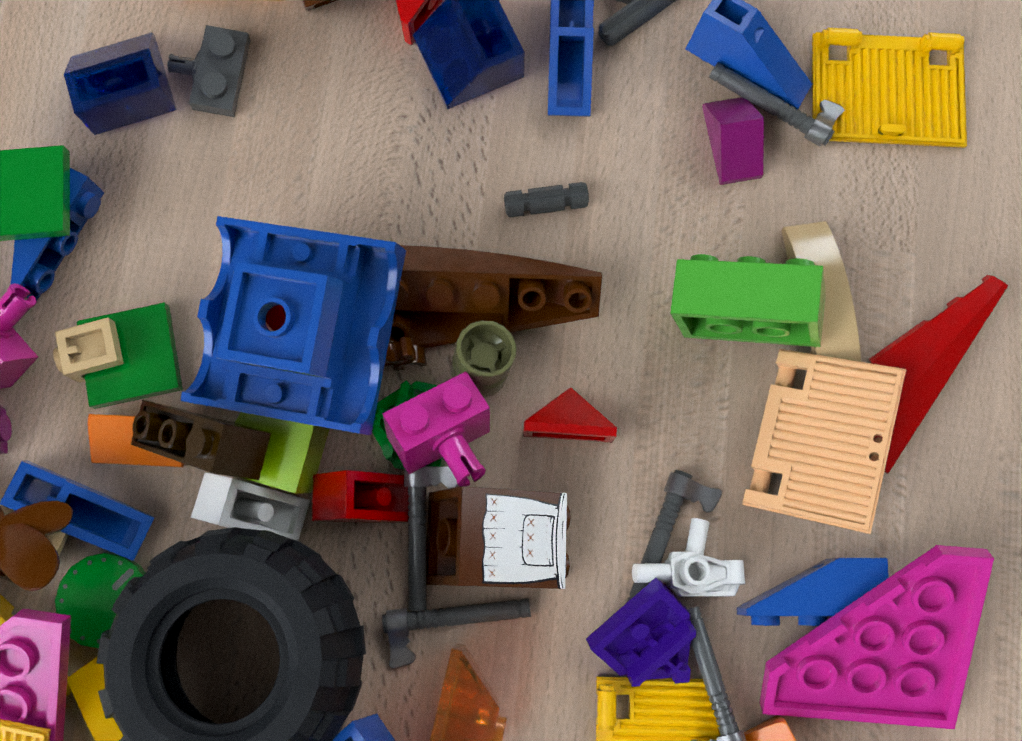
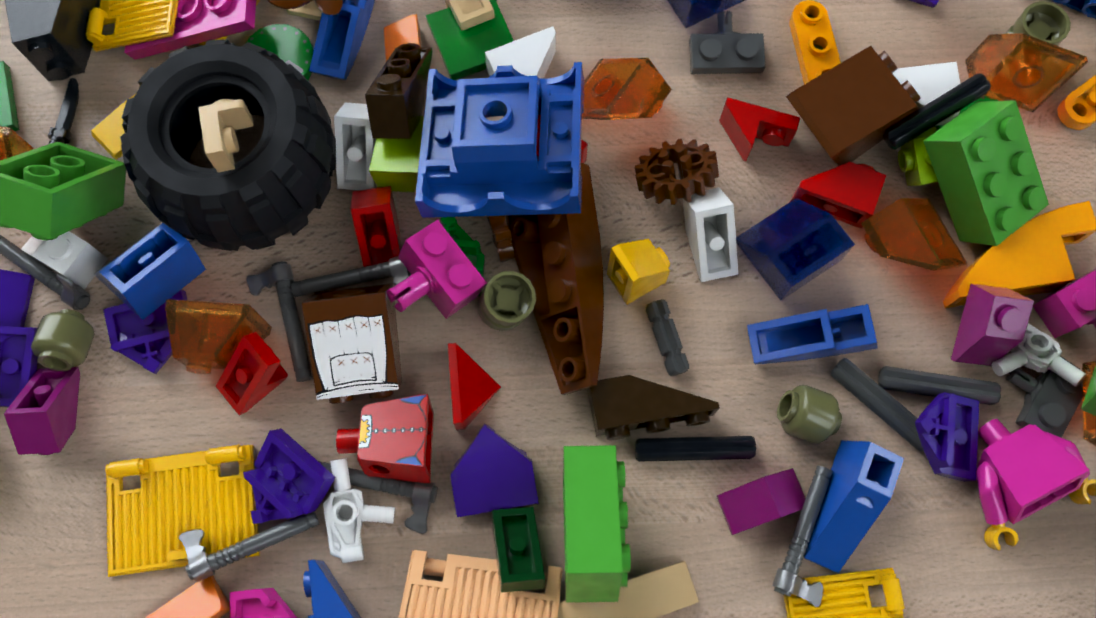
camera: 80 degrees right, 5 degrees down
(178, 298) = (527, 55): none -> white slope
(245, 184) = (624, 90): none -> clear orange slope
(255, 647) = (218, 132): none -> tan bracket
(317, 60) = (749, 121): none -> red slope
(363, 168) = (695, 166): none -> reddish brown gear
(436, 128) = (712, 234): none -> white slope
(470, 212) = (637, 268): none -> yellow slope
(518, 669) = (250, 373): none -> red slope
(619, 238) = (635, 403): none -> dark brown slope
(620, 508) = (393, 439): none -> torso
(654, 72) = (809, 414): none -> olive head
(671, 194) = (695, 448): none -> black axle
(672, 408) = (492, 476): none -> dark purple slope
(758, 389) = (517, 550): none -> dark green plate

